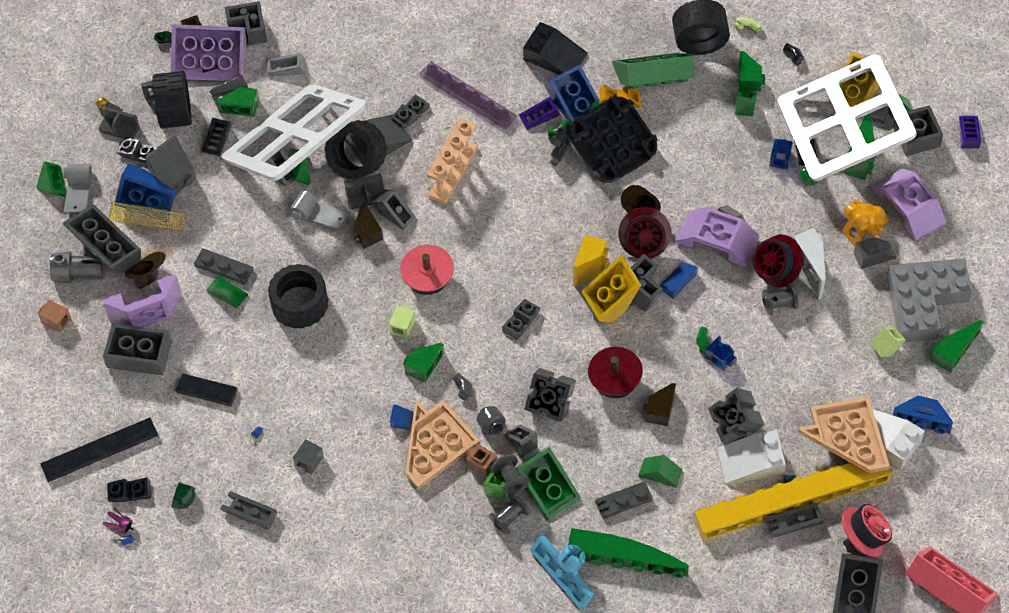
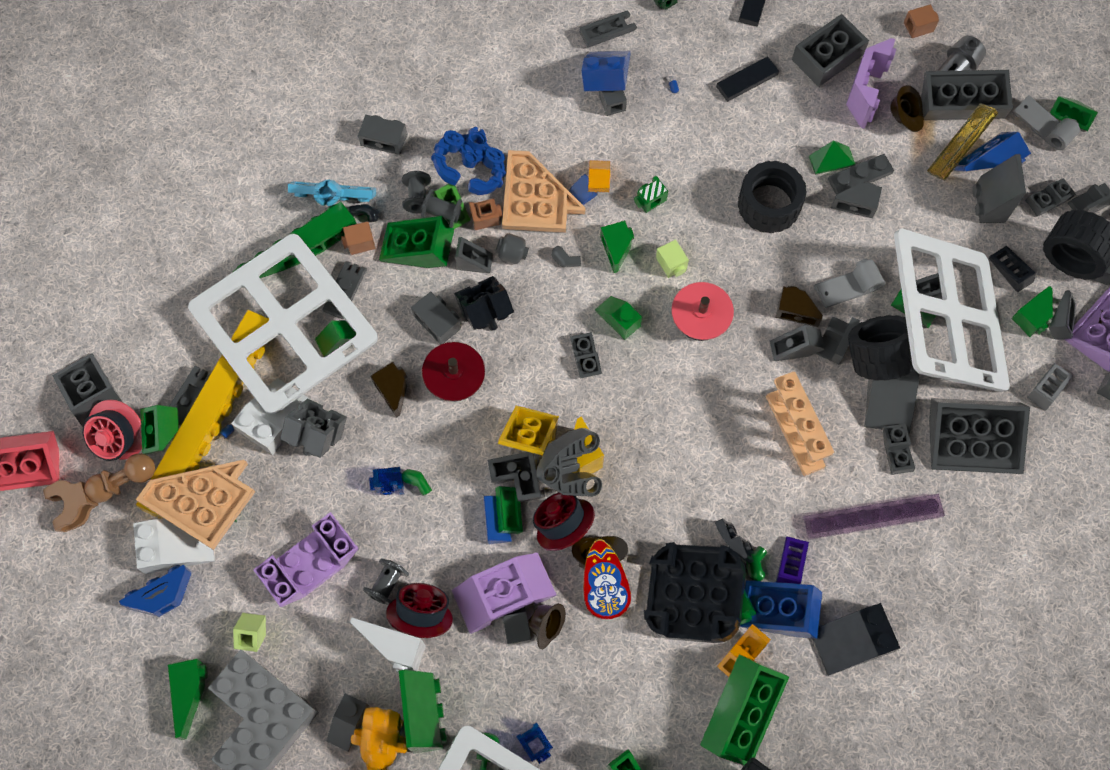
camera: 130 degrees right, 10 degrees up
(246, 249) = (859, 200): none -> dark grey slope
(289, 472) = (605, 70): none -> blue slope
(359, 75) = (978, 435): none -> dark grey slope
(365, 371) = (651, 195): none -> green brick
(380, 410) = (599, 176): none -> light orange slope
(439, 506) = (473, 150): none -> blue piece
(474, 319) = (620, 316): none -> green slope
(485, 580) = (382, 134): none -> dark grey brick
(553, 536) = (365, 209): none -> black arm
(580, 519) = (358, 238): none -> nougat brick
(587, 422) = (436, 318): none -> dark grey brick
(610, 243) = (562, 461): none -> dark grey connector
(656, 186) = (605, 582): none -> shield
(668, 274) = (508, 510): none -> green tile
(689, 501) = (282, 323): none -> white window
(713, 198) = (547, 623): none -> dark brown piece
(814, 353) = (307, 562): none -> lavender slope
(831, 213) = (422, 711): none -> green slope
(835, 501) = (157, 427): none -> green slope
(906, 505) = (83, 497): none -> medium nougat piece

